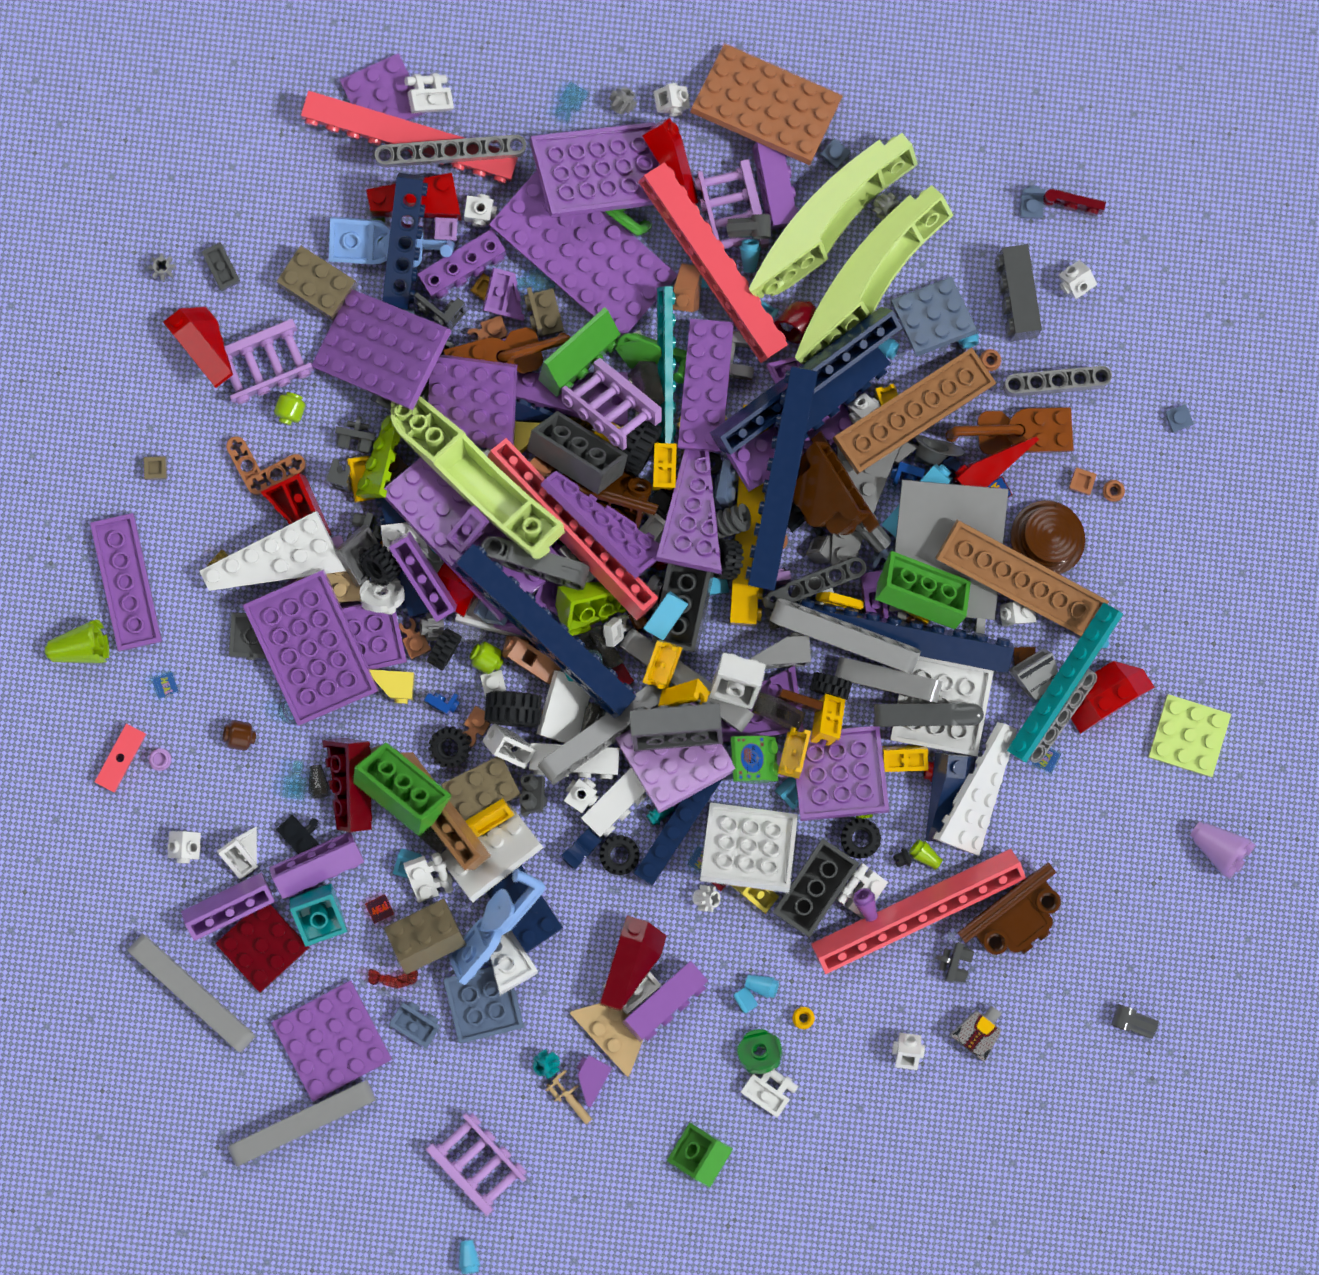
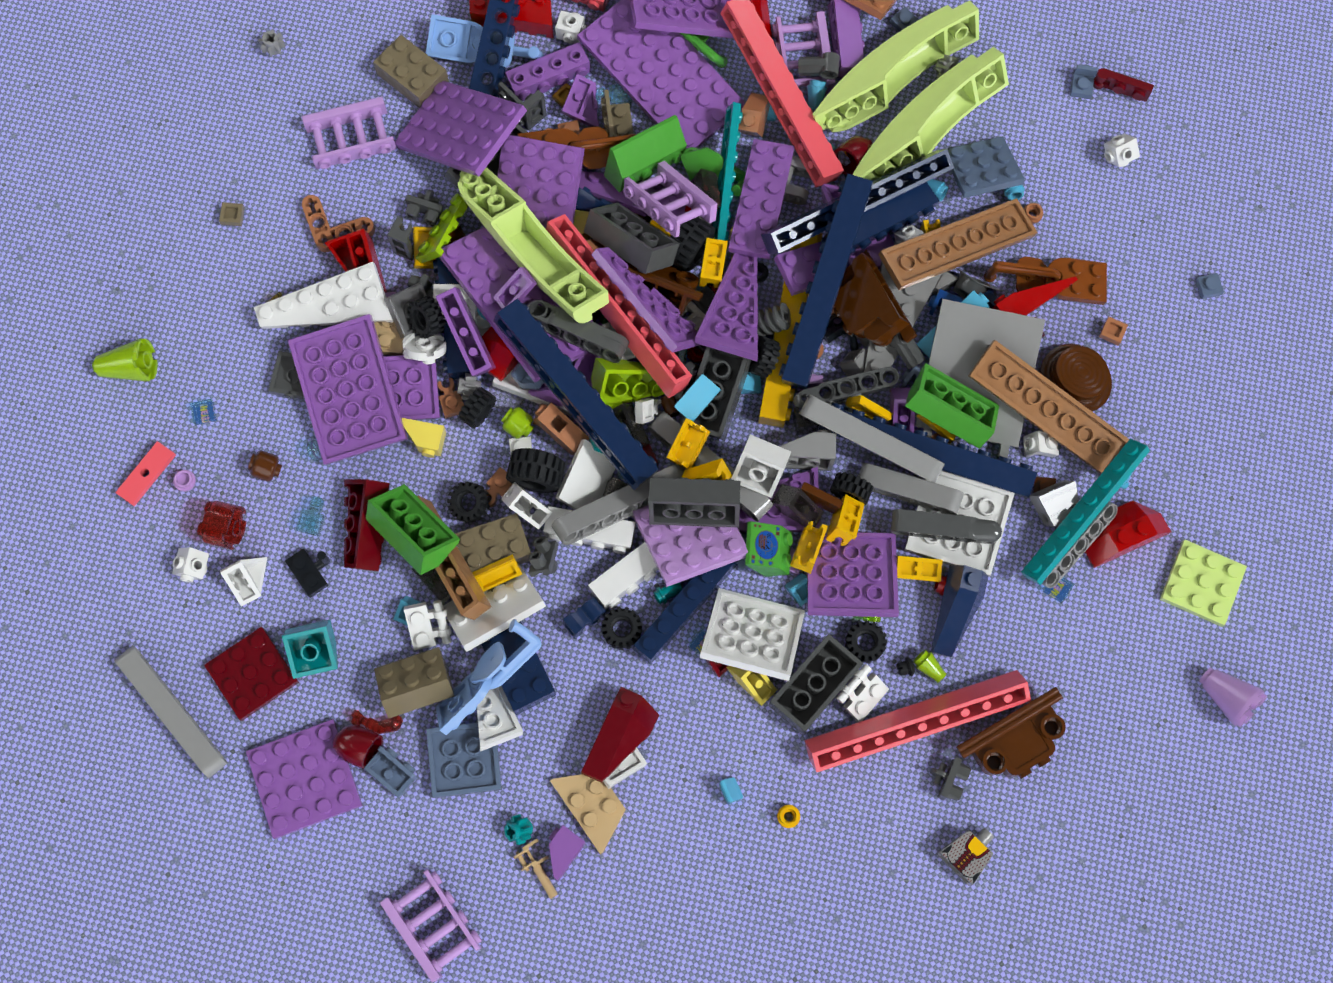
camera: 10 degrees right, 10 degrees down
(126, 582) = (183, 313): medium lavender plate -> none
(201, 338) = (294, 105): red wedge -> none
(209, 802) = (222, 524): none -> clear red brick
(221, 266) = (325, 49): dark grey plate -> none
(227, 906) = (221, 628): medium lavender brick -> none
(289, 408) = (366, 175): lime head -> none
(301, 1123) = (257, 859): light grey beam -> none
(316, 865) = (317, 599): medium lavender brick -> none
(318, 783) = (334, 521): clear smoke cone -> none
(378, 1003) = (353, 744): none -> dark red piece
(379, 909) = (374, 652): clear red tile -> none
(438, 702) = (465, 460): blue bracket -> none
(445, 228) = (538, 38): lavender plate -> none
(575, 800) = (584, 559): white brick -> none
(665, 1001) = (649, 780): medium lavender brick -> none
(699, 1155) = (665, 946): bright green slope -> none
(706, 898) = (704, 681): white gear -> none
(725, 486) = (770, 289): sand blue bracket -> none
(762, 985) = (751, 777): medium azure cone -> none
(767, 1096) = (740, 891): white plate -> none
(769, 1059) = (737, 857): green plate -> none
(865, 902) = (866, 705): medium lavender cone -> none
(908, 1051) = (894, 863): white brick -> none
(975, 801) = (987, 614): white wing -> none
(1019, 293) = (1066, 153): dark grey brick -> none
(1067, 377) = (1104, 233): light grey beam -> none
(1113, 484) = (1146, 339): nougat plate -> none
(1129, 1020) = (1125, 861): dark grey piece -> none

